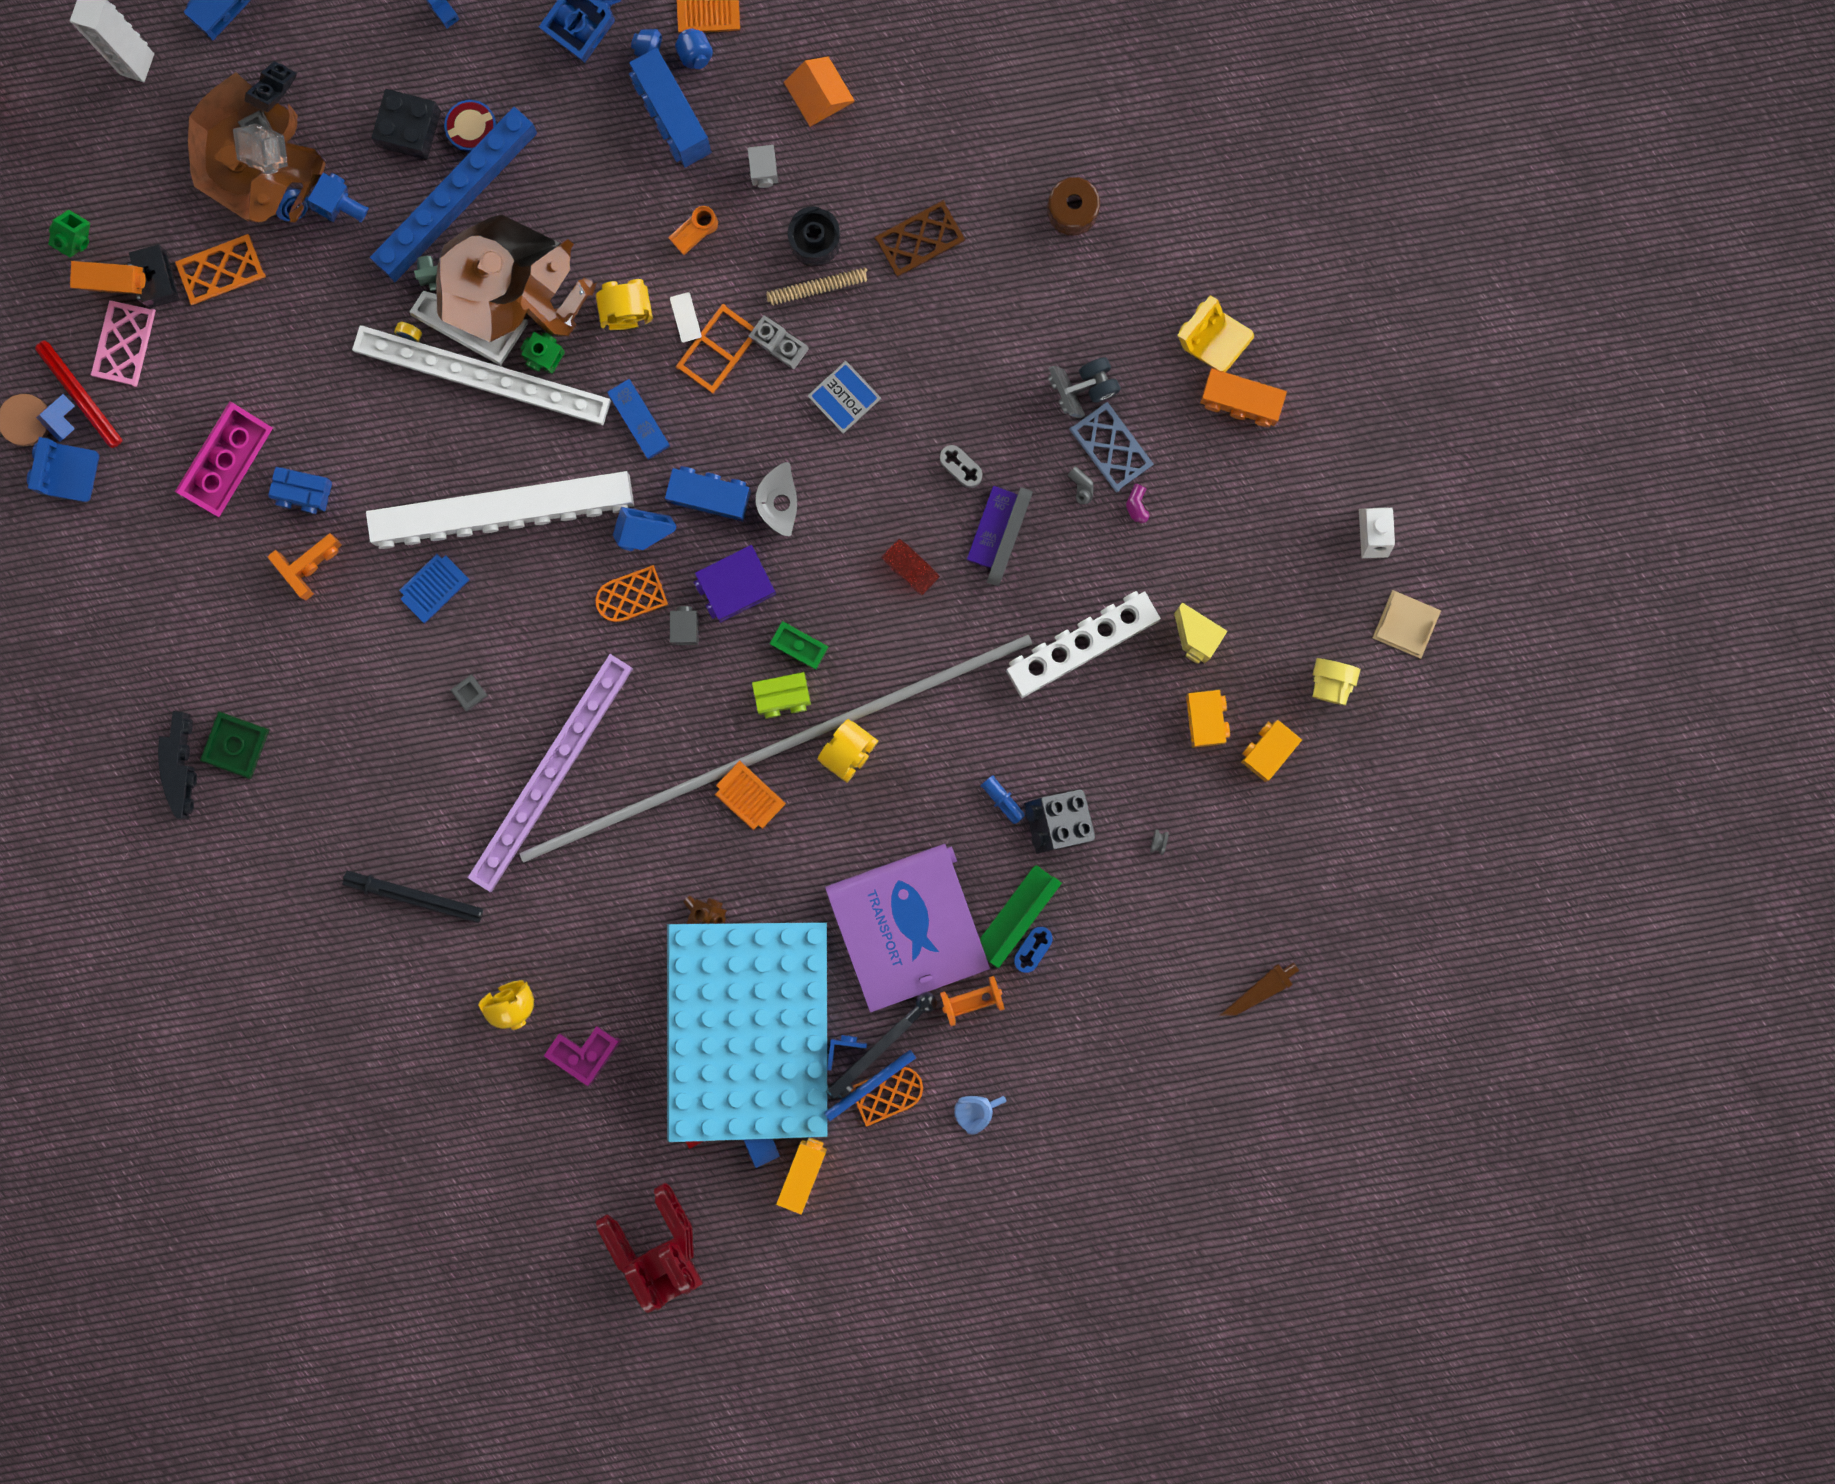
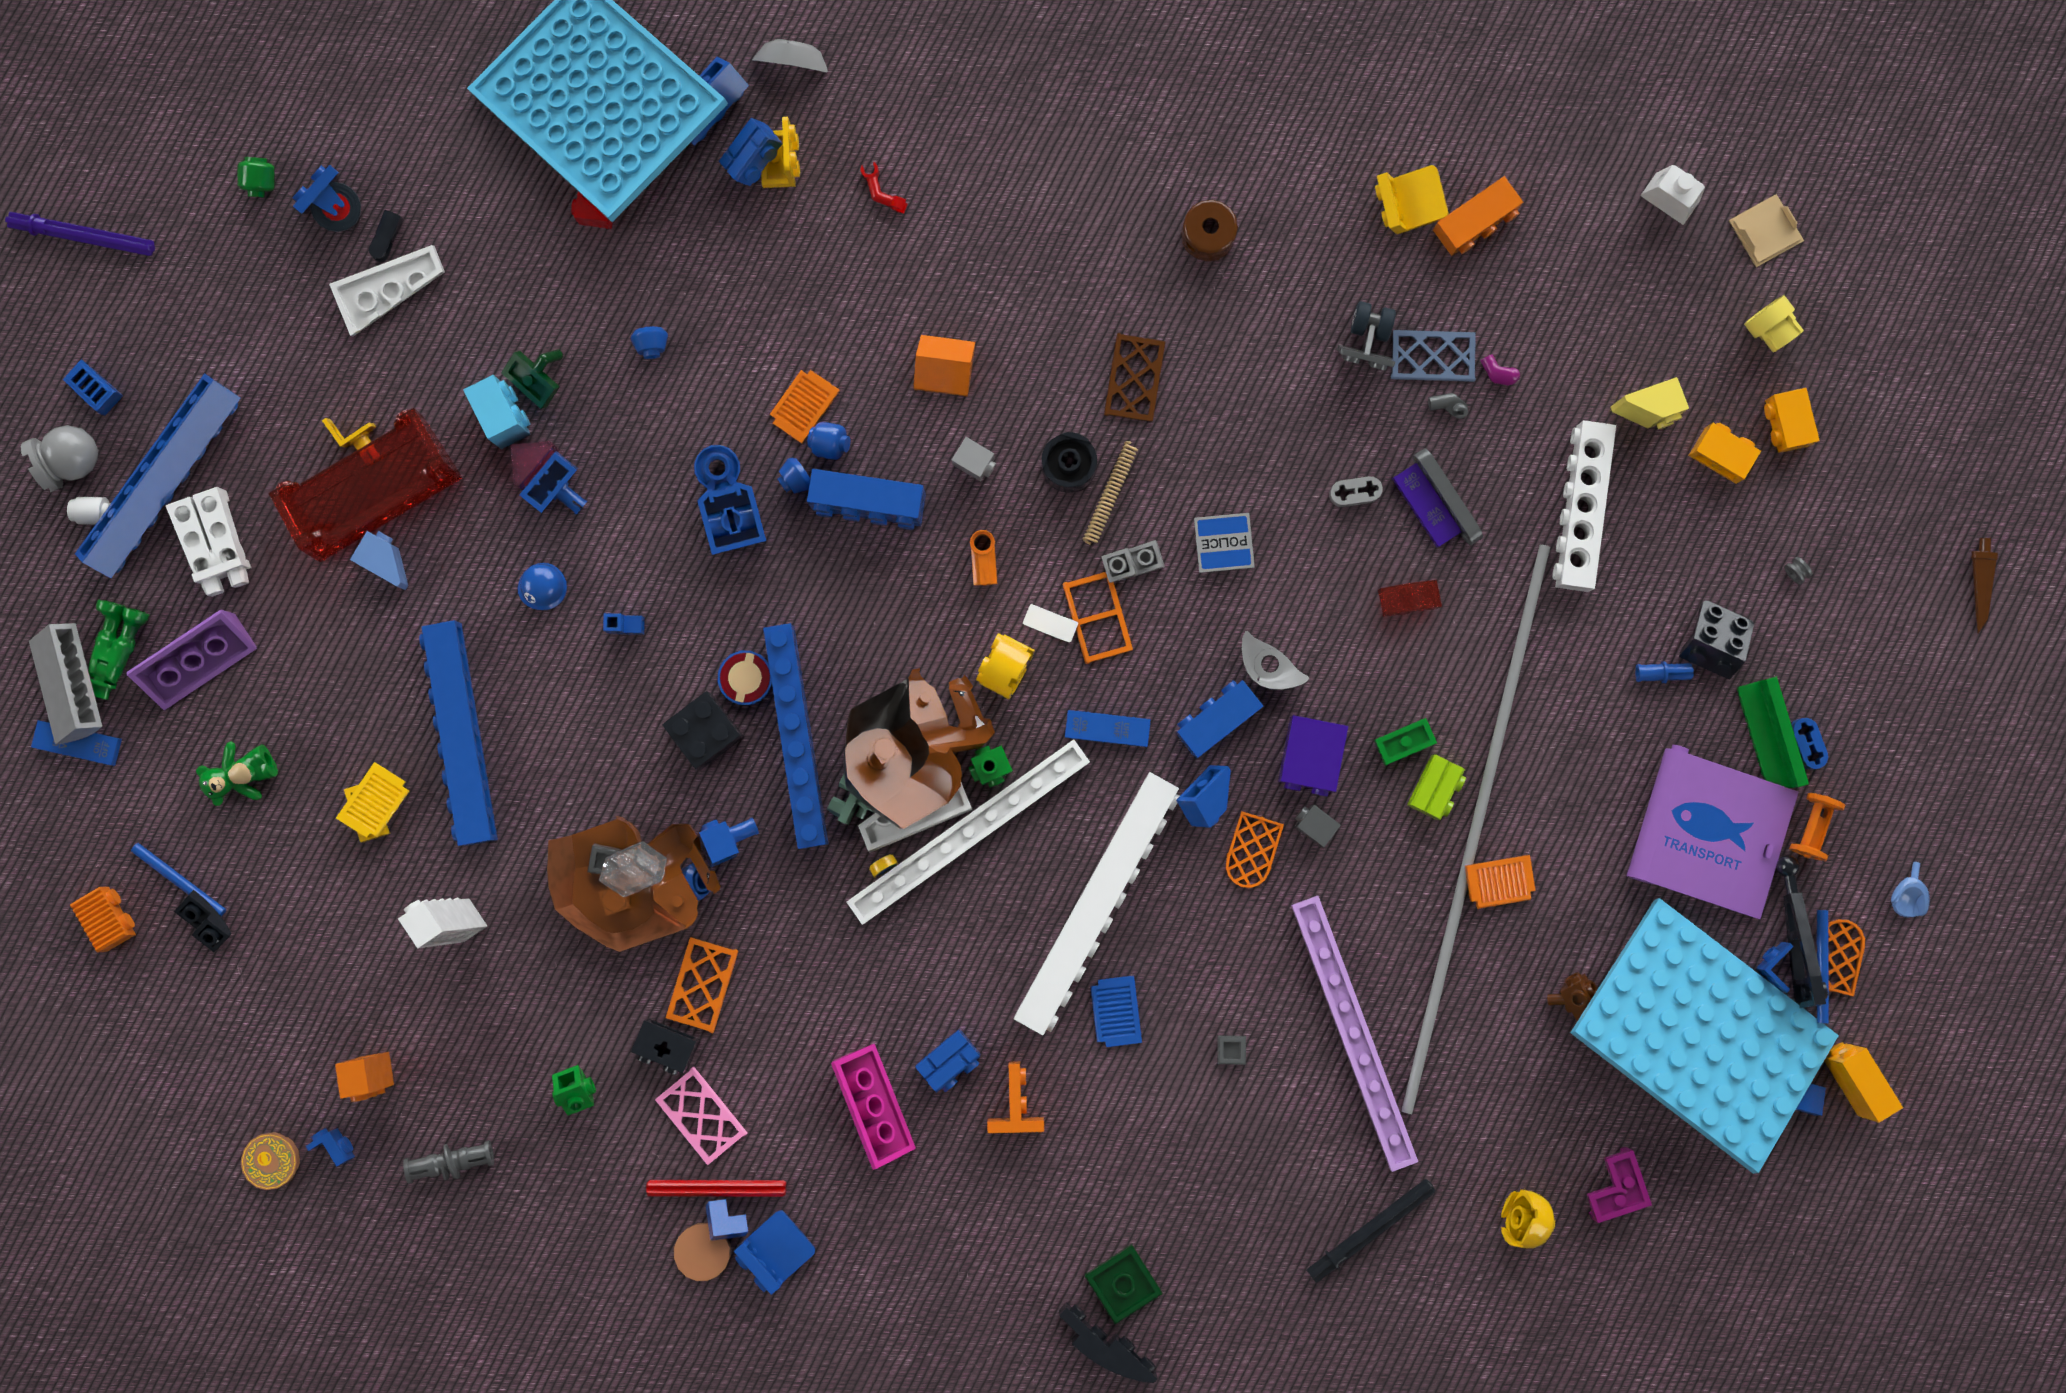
camera: 50 degrees left, 0 degrees up
(107, 277) = (641, 1086): orange slope -> none
(271, 88) = (579, 821): black slope -> none
(663, 1270) = (1848, 1257): dark red piece -> none
(847, 750) = (1529, 768): yellow brick -> none

